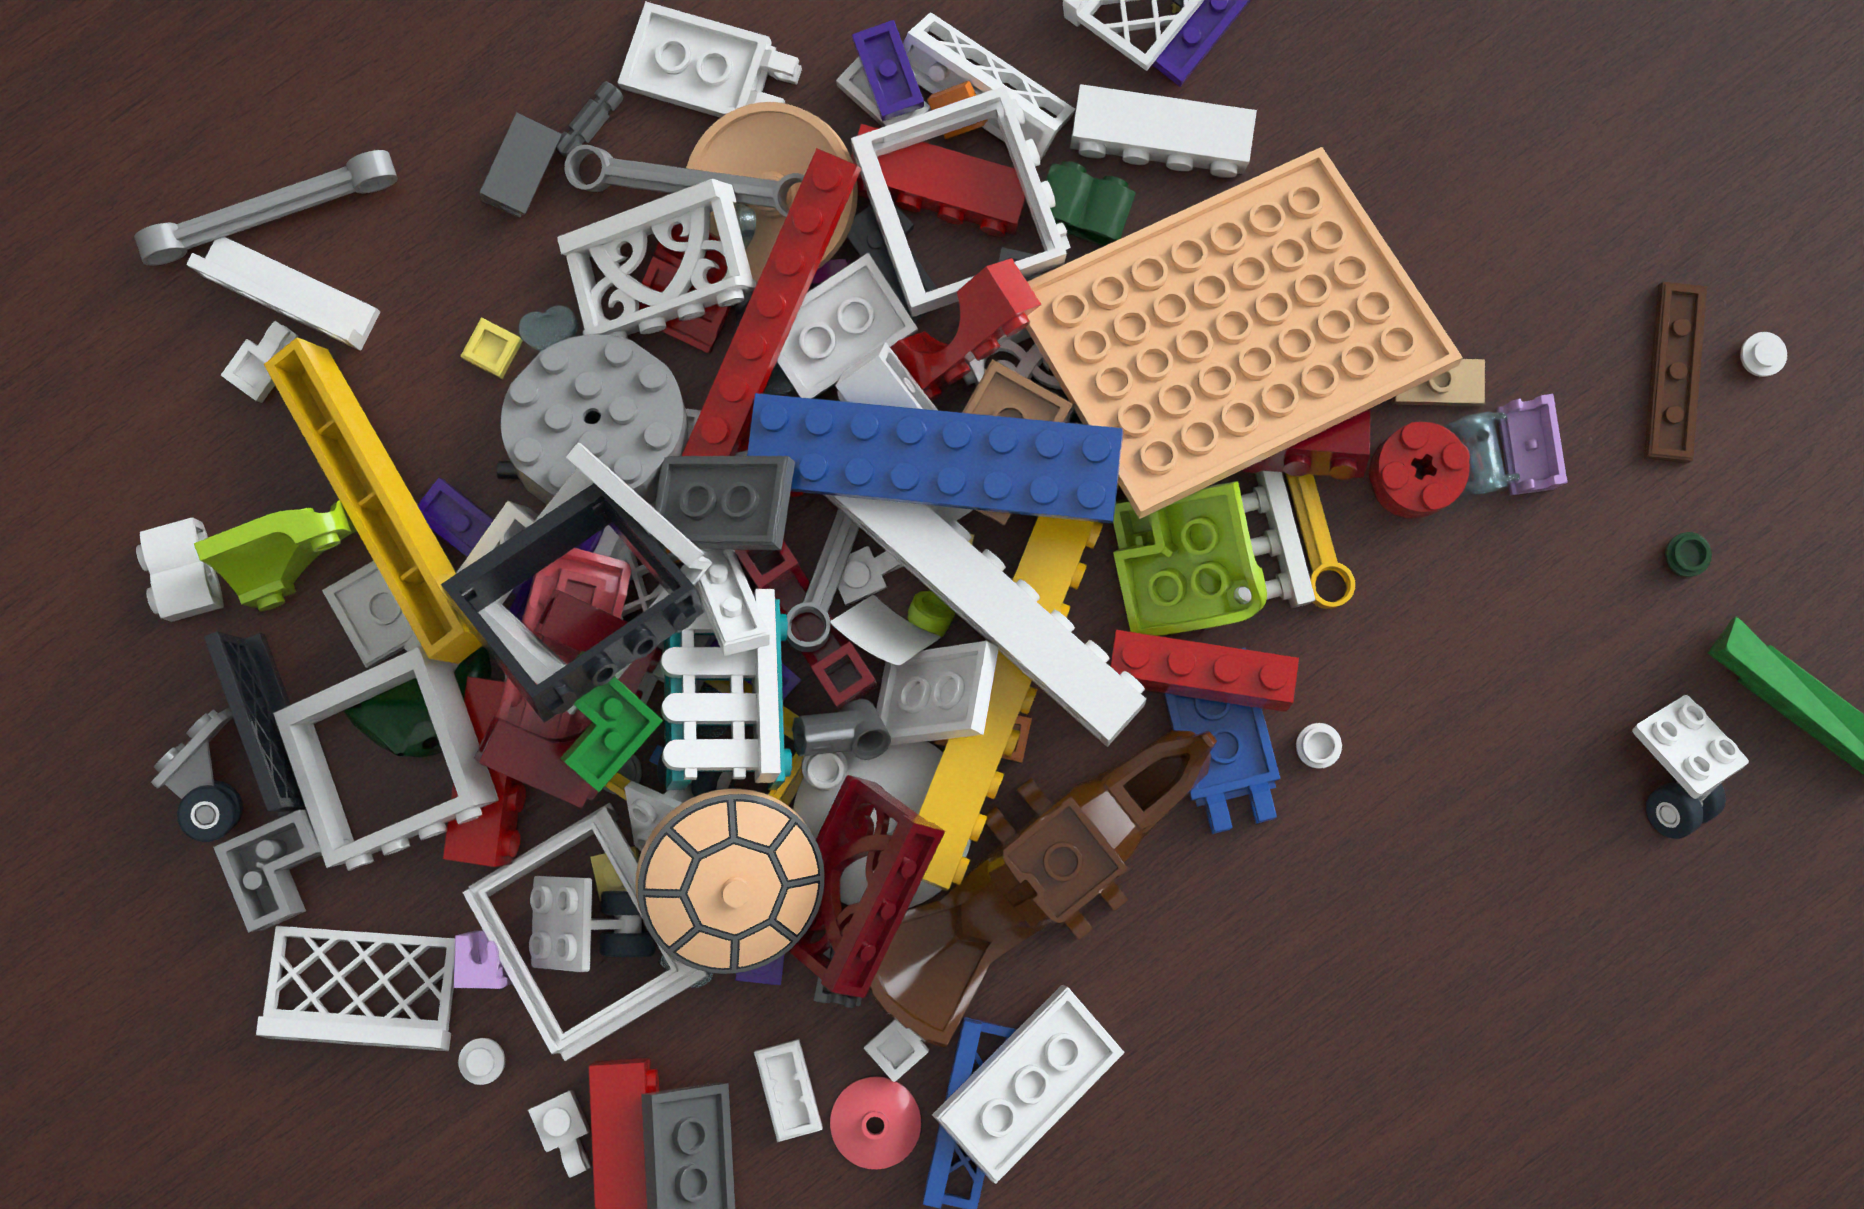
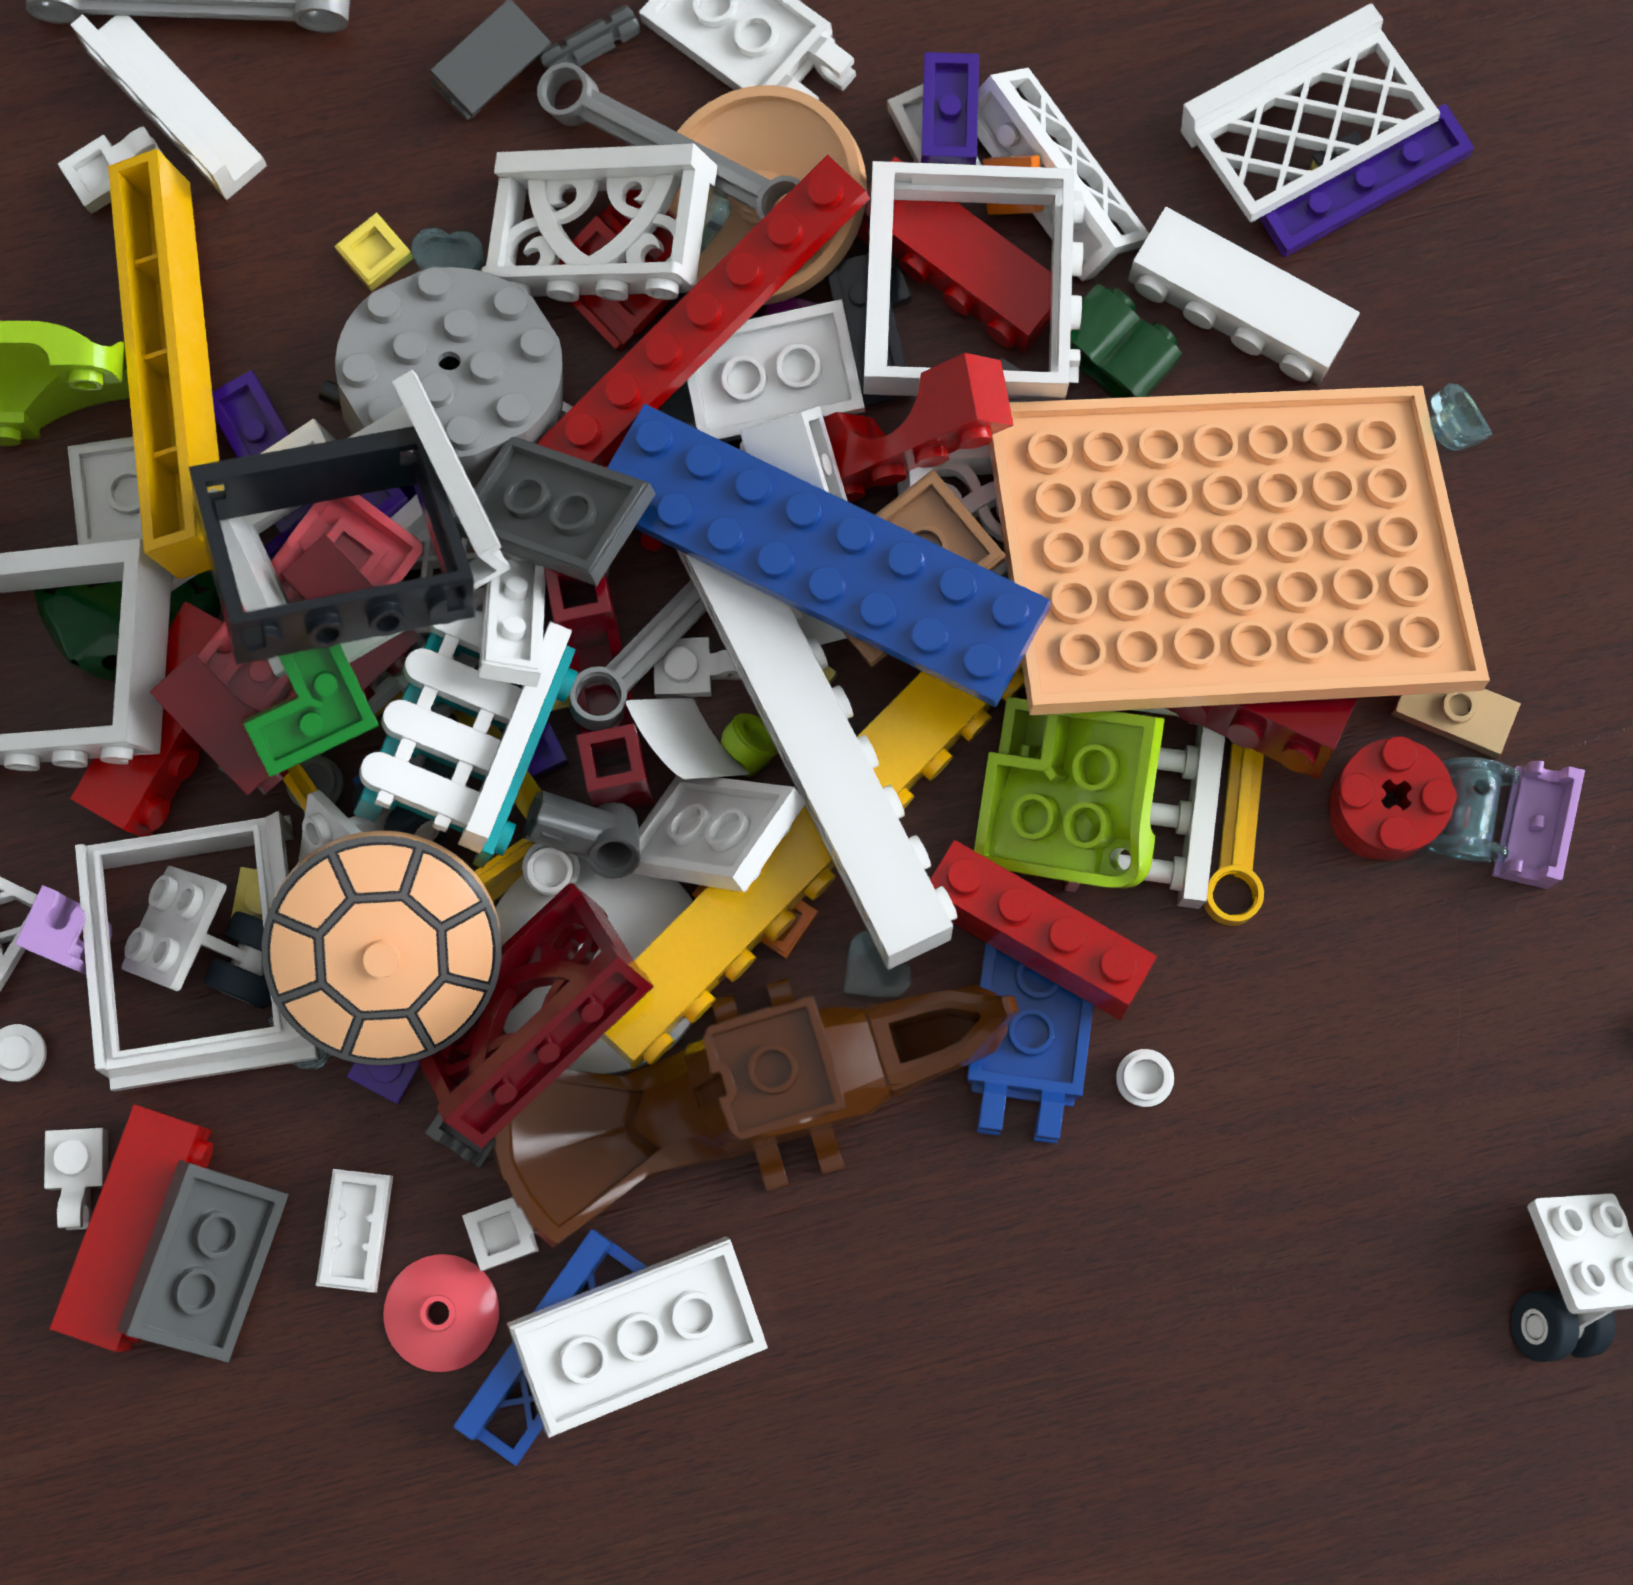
camera: 25 degrees right, 5 degrees down
(1086, 749) = (868, 974): none -> clear light blue tile
(1356, 161) = (1457, 419): none -> clear light blue tile

